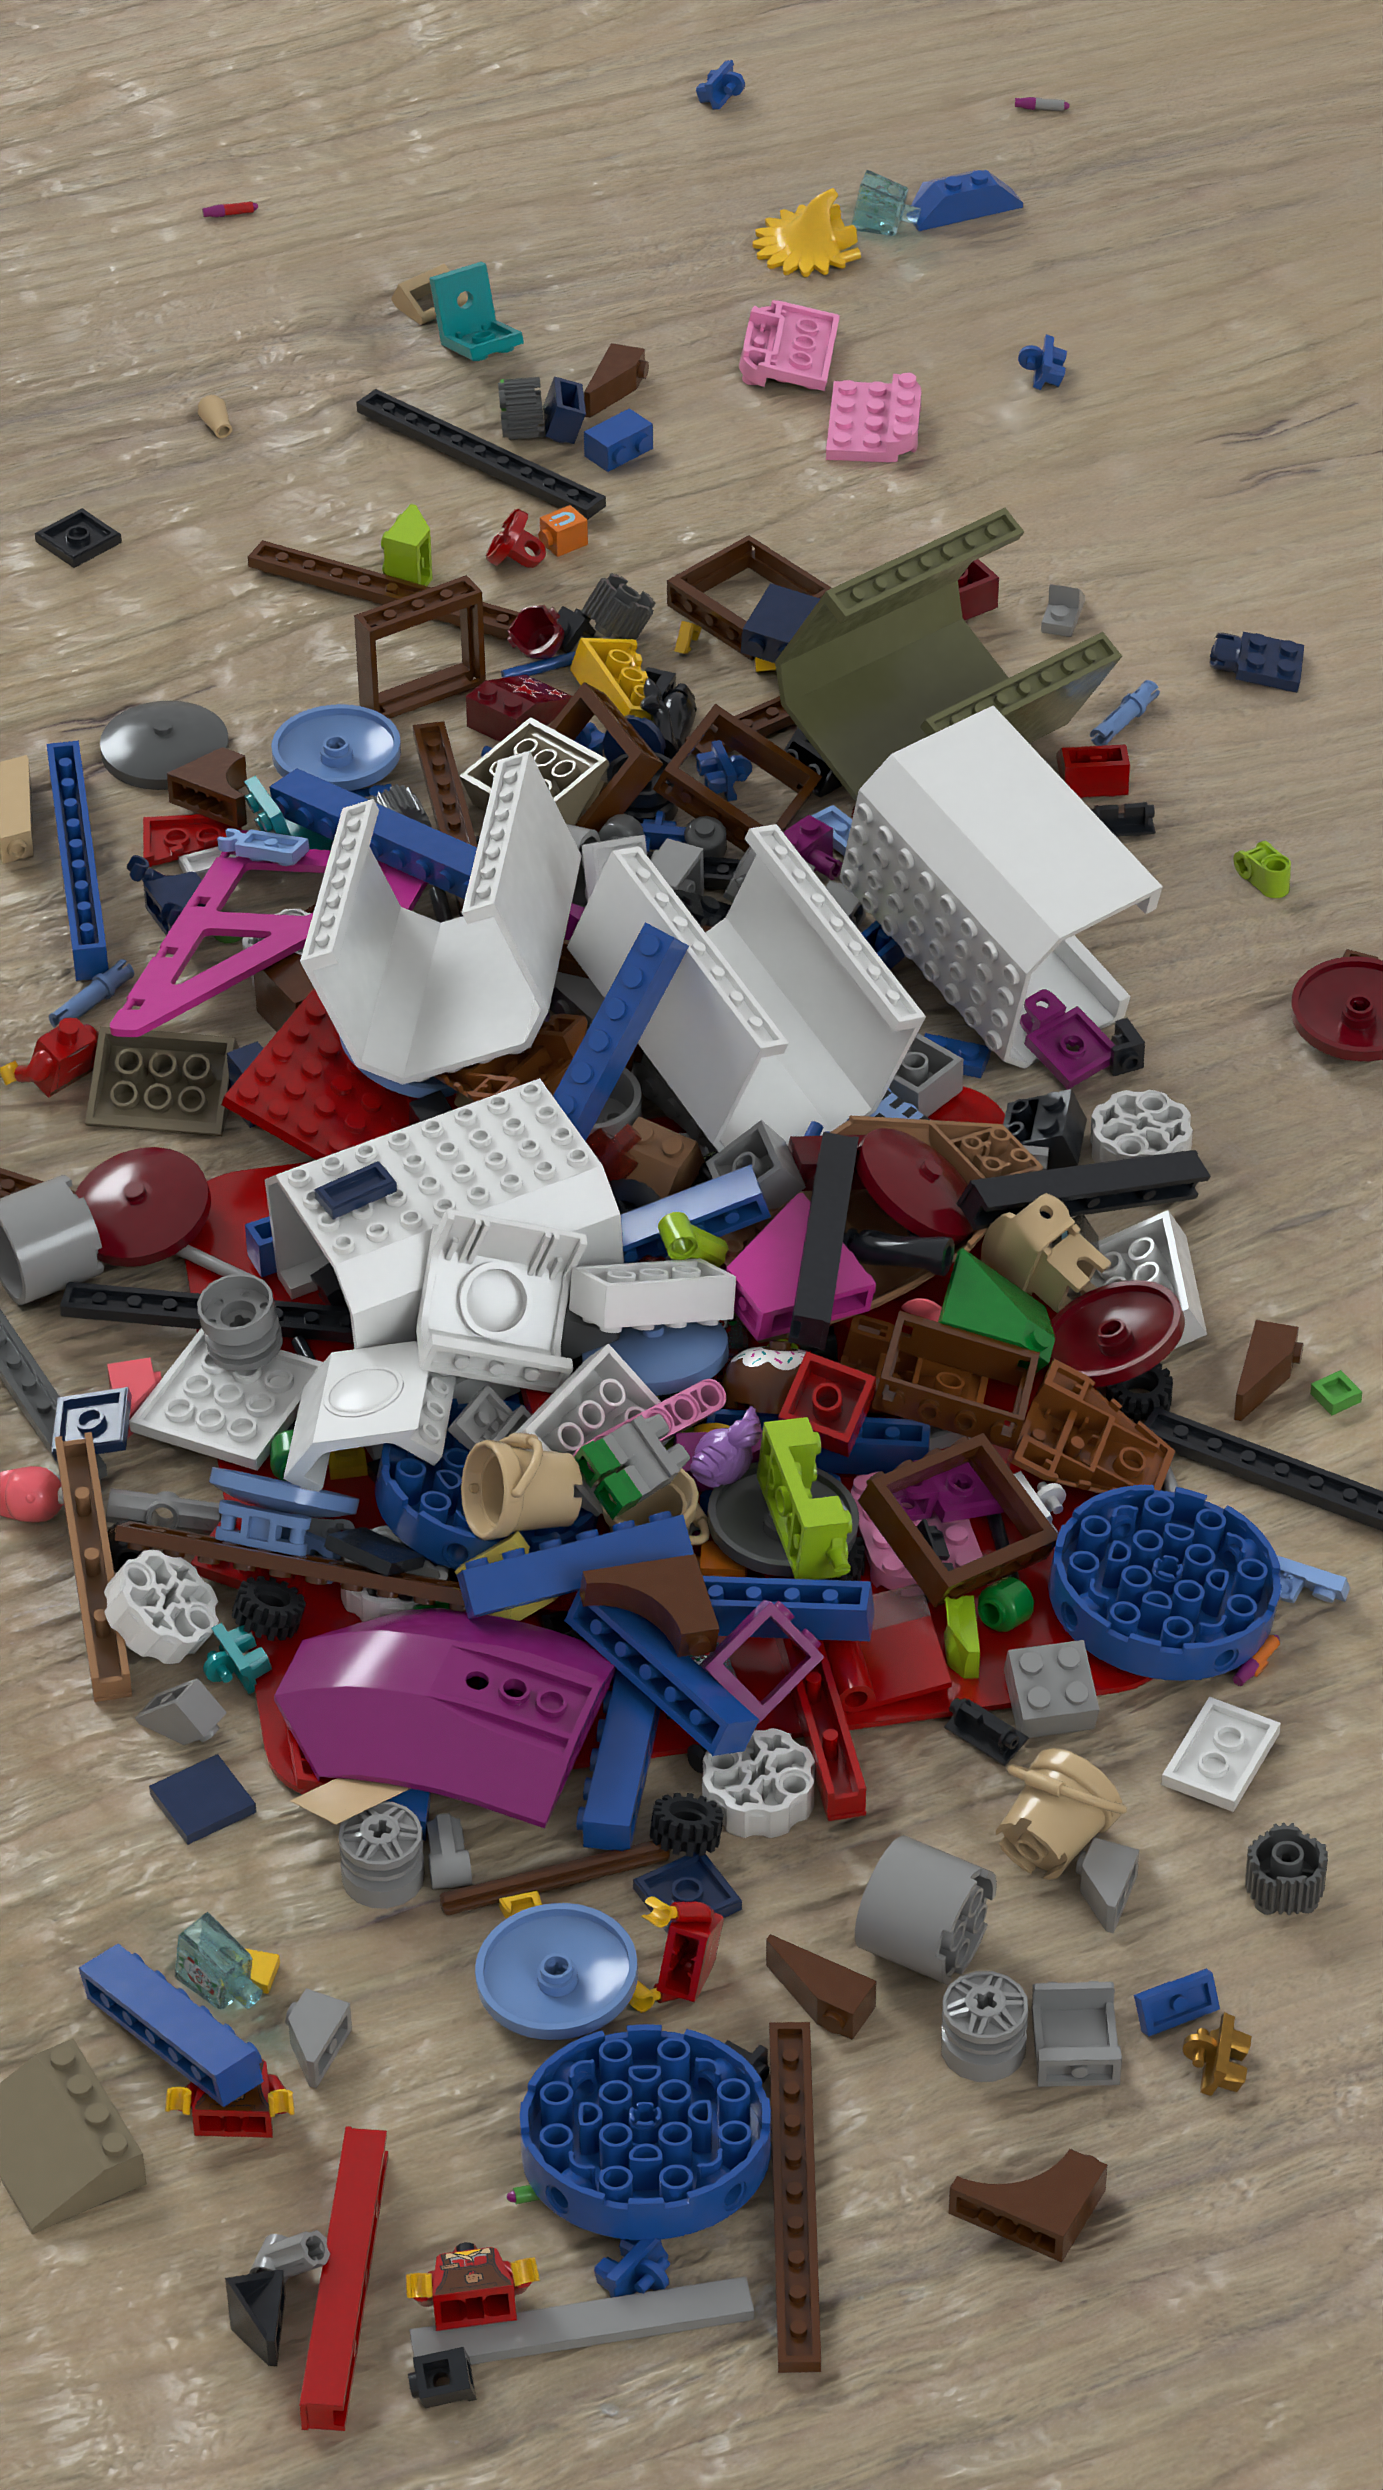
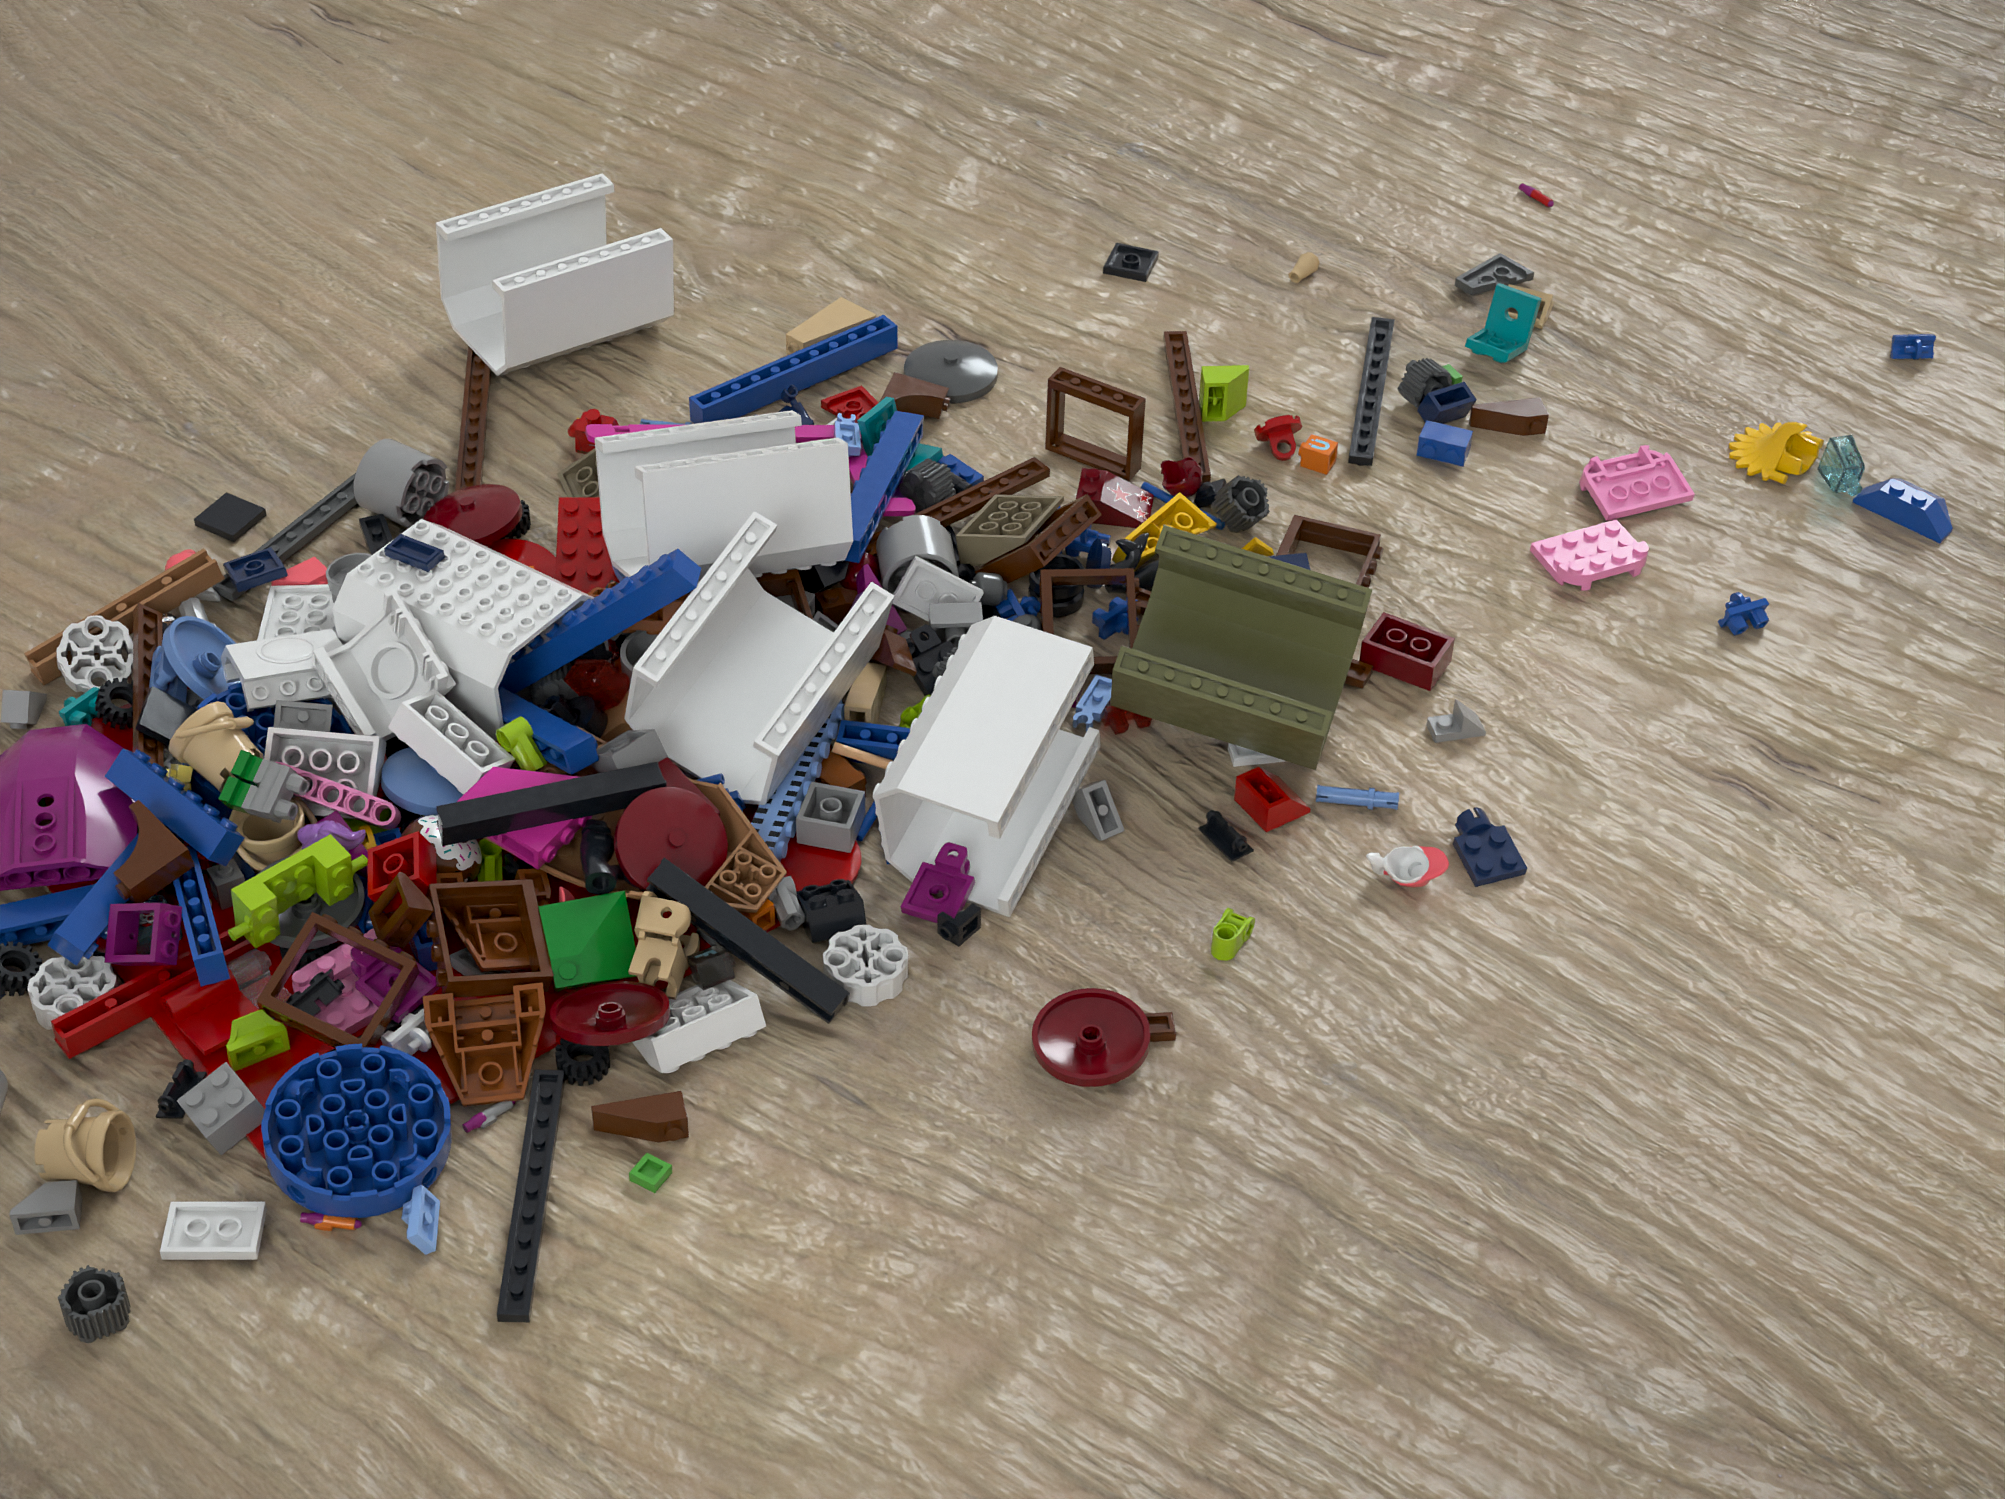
camera: 60 degrees right, 0 degrees up
(338, 744) = (991, 436): medium blue dish -> none
(352, 294) = (1492, 272): none -> dark grey wing
(911, 1425) = (408, 916): none -> reddish brown tile
(1005, 1604) = (295, 1049): green head -> none
(1263, 708) = (1410, 865): none -> white hair

